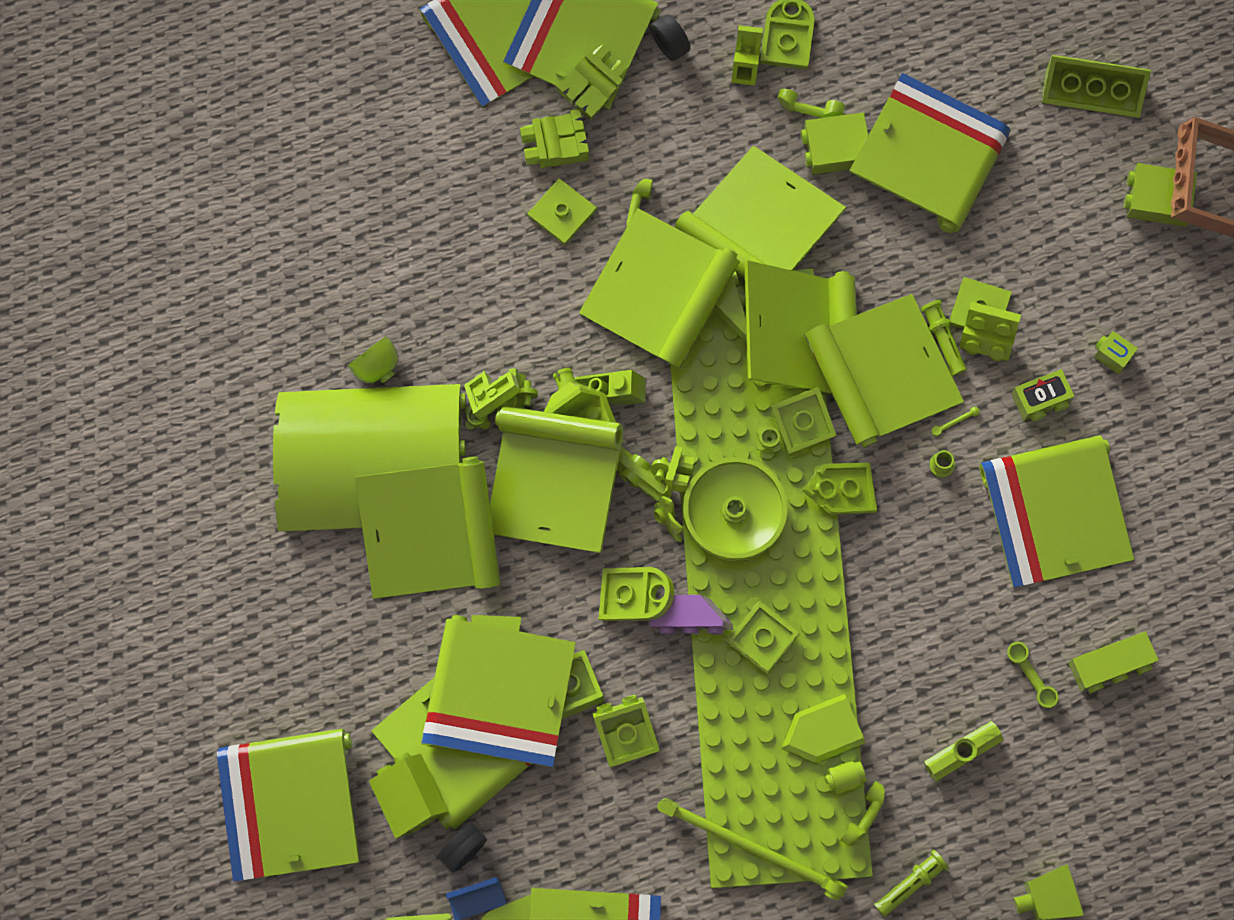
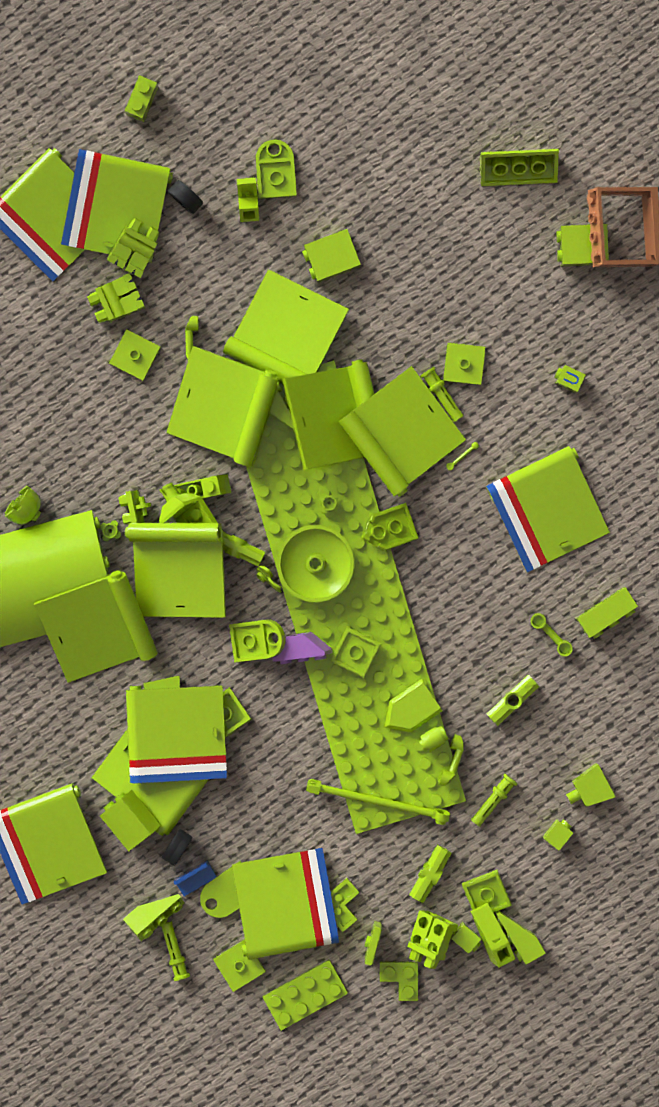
camera: 15 degrees left, 15 degrees up
(487, 396) = (114, 516): lime plate -> none
(625, 730) = (272, 738): lime plate -> none
(669, 471) = (267, 536): lime hips -> none
(788, 99) = (288, 227): lime bar -> none
(803, 420) = (350, 485): lime hinge -> none
(932, 151) = (404, 248): lime door -> none
(938, 470) = (451, 491): lime piece -> none
(989, 331) = (474, 386): lime plate -> none
(1043, 395) = (523, 423): lime brick -> none

